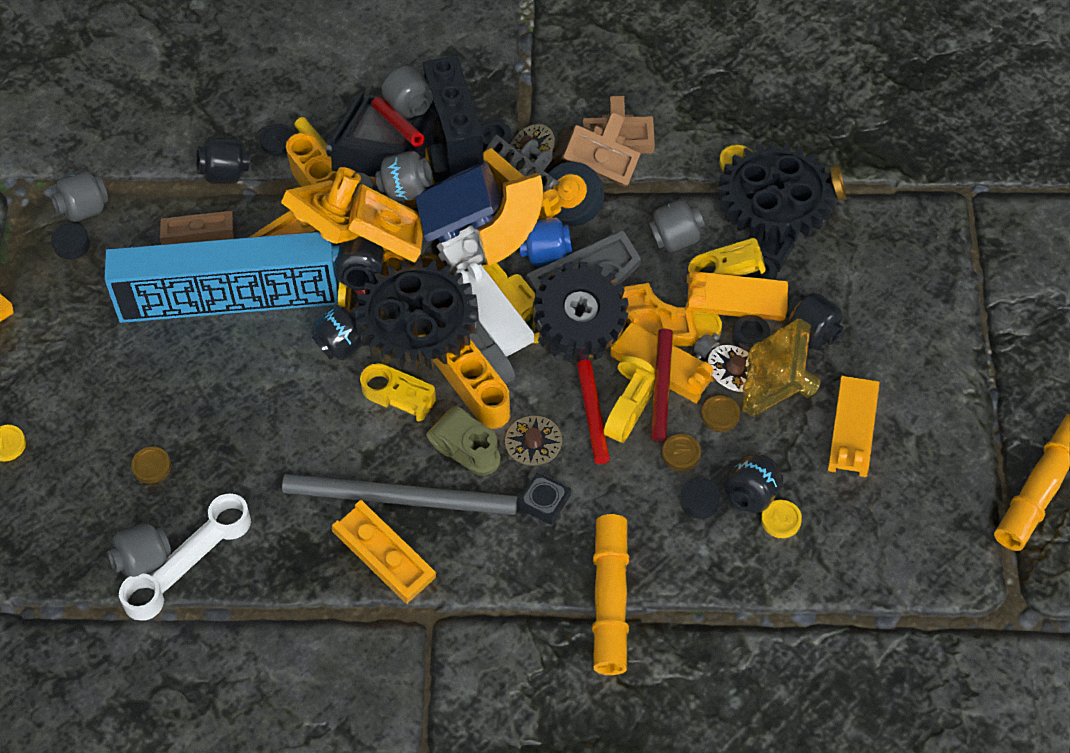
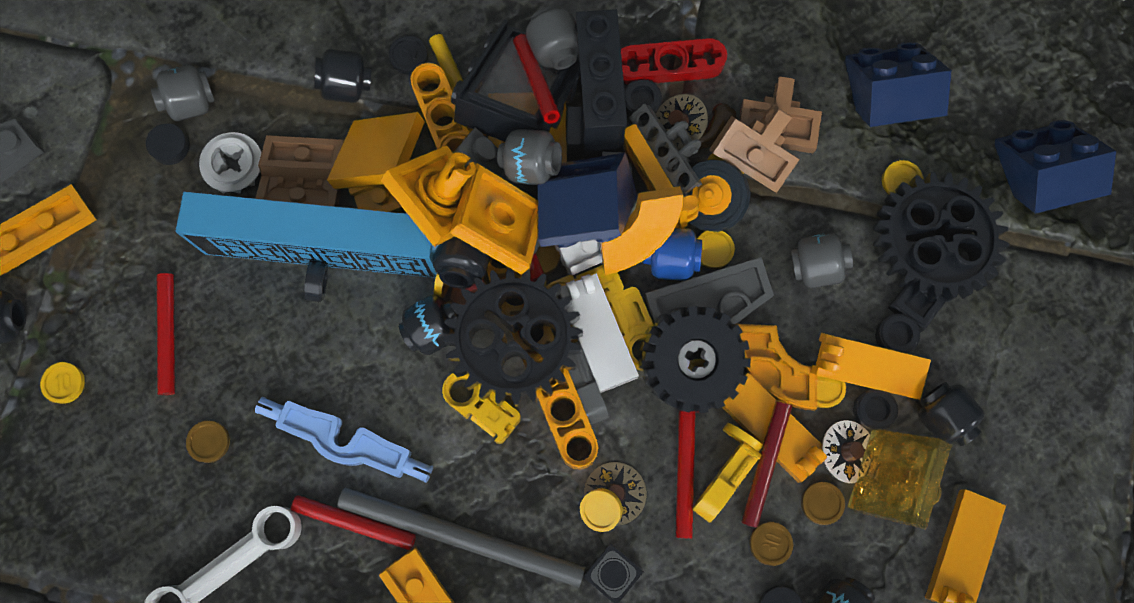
camera: 10 degrees right, 20 degrees up
(96, 387) = (165, 335): none -> red bar
(131, 233) = (213, 164): none -> white gear
(138, 550) = (172, 557): dark grey head -> none
(229, 318) = (316, 281): none -> black tile
(262, 207) = (373, 148): none -> light orange tile
(297, 442) = (323, 432): none -> light blue piece
(298, 501) = (353, 522): none -> red piece
(466, 441) = (536, 483): olive piece -> none
(522, 450) = (601, 510): none -> yellow piece
(536, 91) = (696, 47): none -> red beam
(583, 236) = (716, 249): none -> yellow piece
(705, 346) = (824, 419): dark grey piece -> none
(715, 87) = (898, 84): none -> dark blue slope
(732, 259) = (872, 320): yellow piece -> none
(838, 182) = (1011, 237): pearl gold piece -> none
(863, 123) = (1056, 165): none -> dark blue slope

